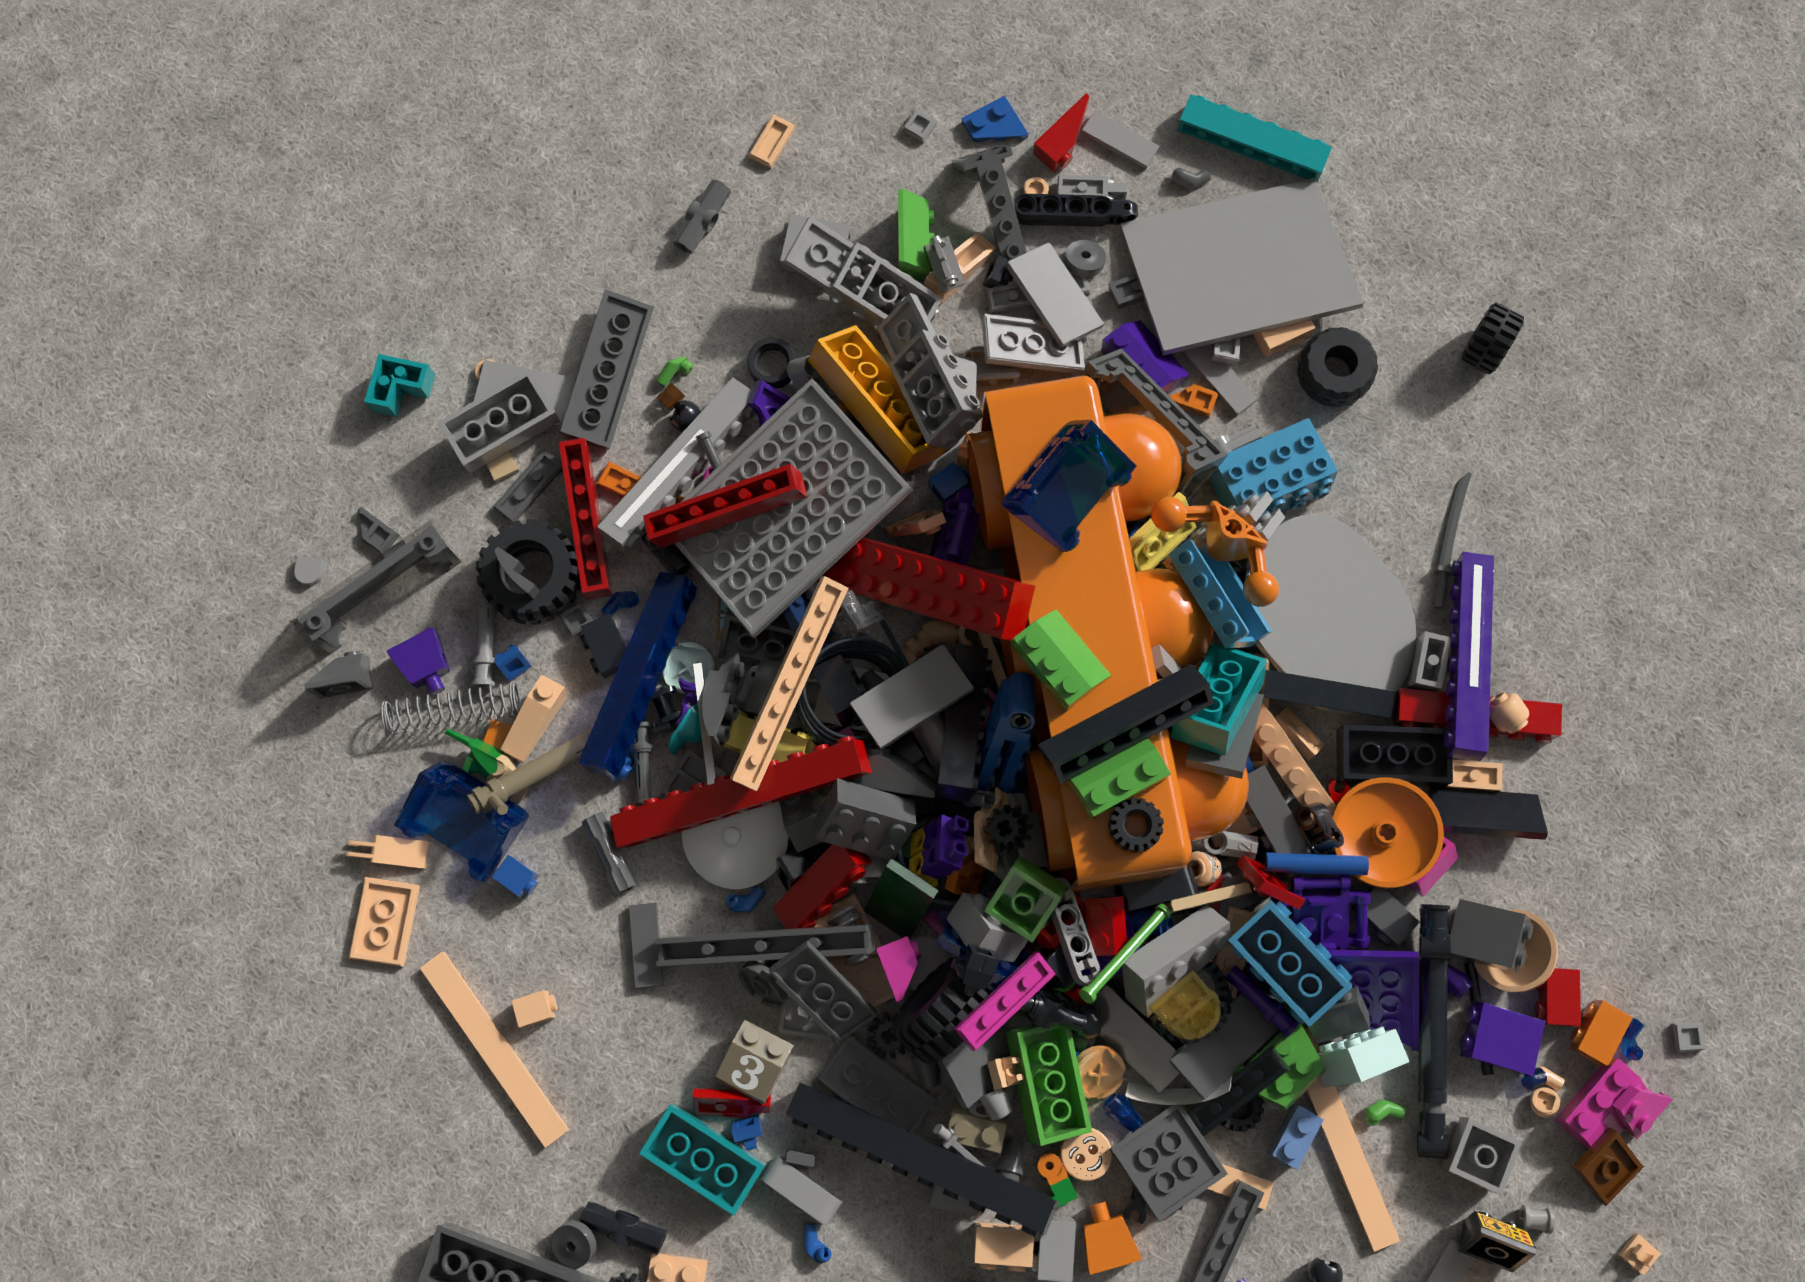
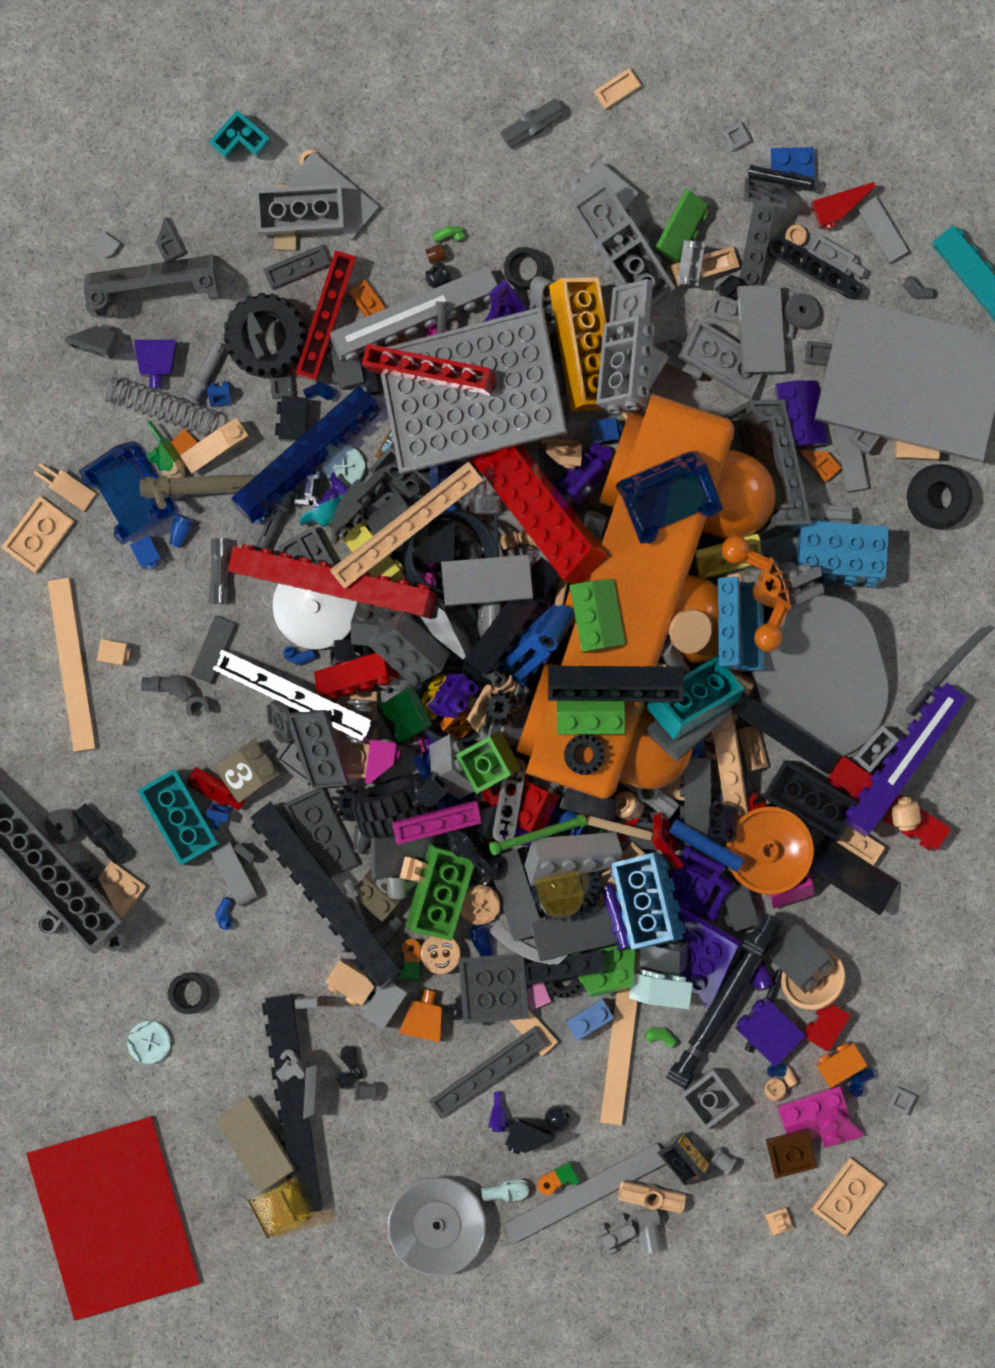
camera: 25 degrees right, 10 degrees up
(542, 832) = (180, 530): none -> blue cone
(590, 376) = (384, 208): dark grey plate -> none
(628, 1008) = (176, 686): none -> dark grey piece
(639, 564) = (346, 372): none -> dark grey brick
(707, 747) = (328, 530): white sticker -> none
(993, 137) = (780, 177): none -> black pin
(1172, 625) = (690, 631): none -> light nougat tile
(1221, 1142) = (537, 996): none -> bright pink tile
(1696, 1181) = (847, 1196): none -> light nougat tile

